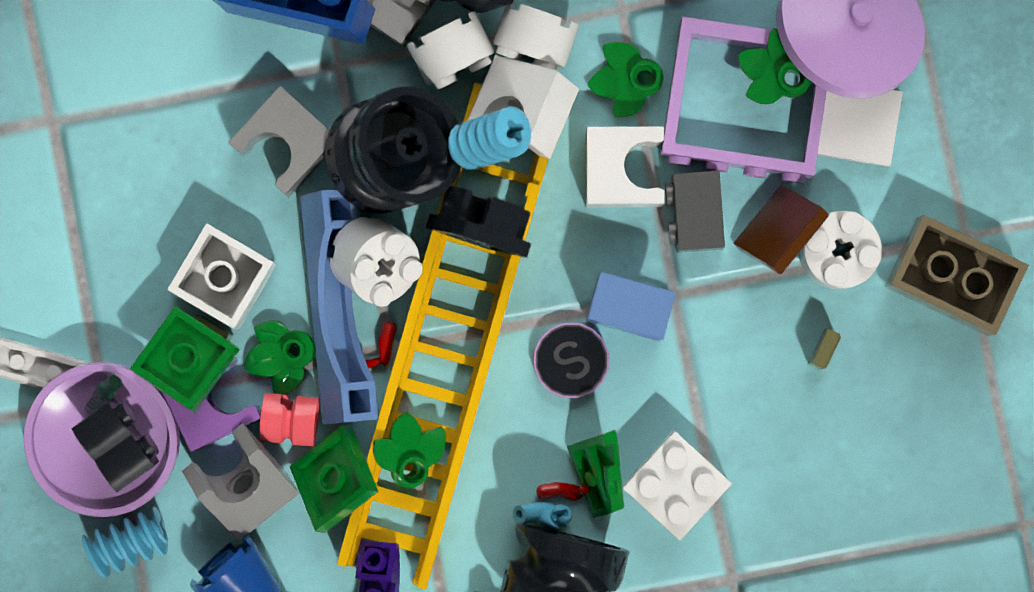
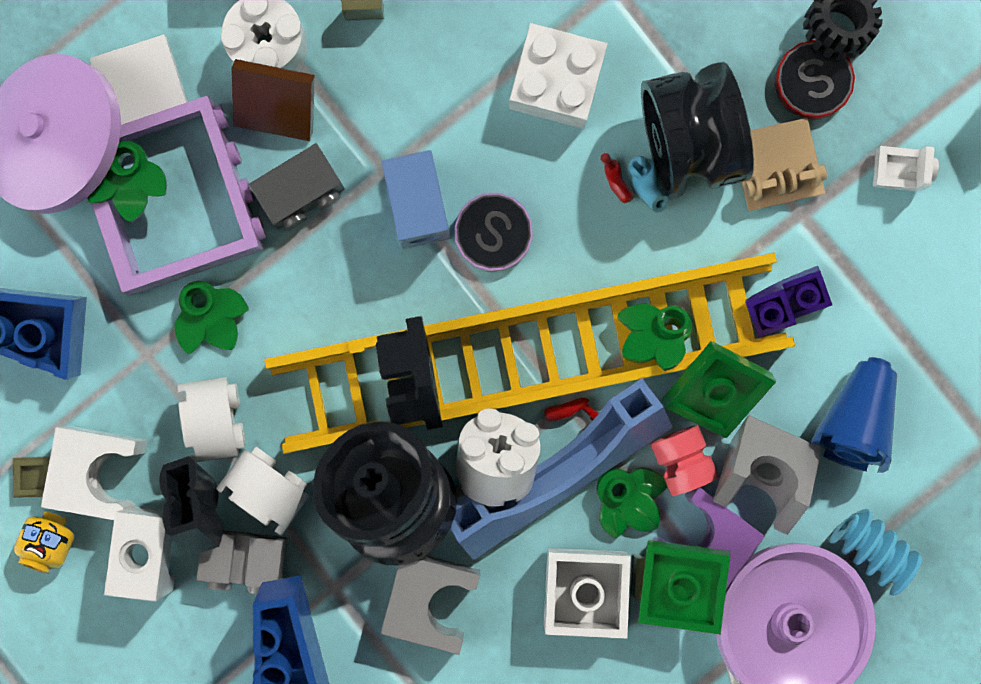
camera: 120 degrees left, 0 degrees up
(103, 393) = (753, 646): piece -> none
(116, 444) = (796, 609): black brick -> none
(490, 138) = (326, 408): medium azure piece -> none
(536, 91) = (265, 405): white piece -> none
(599, 468) = (578, 152): green wing -> none
(605, 169) = (300, 291): white piece -> none

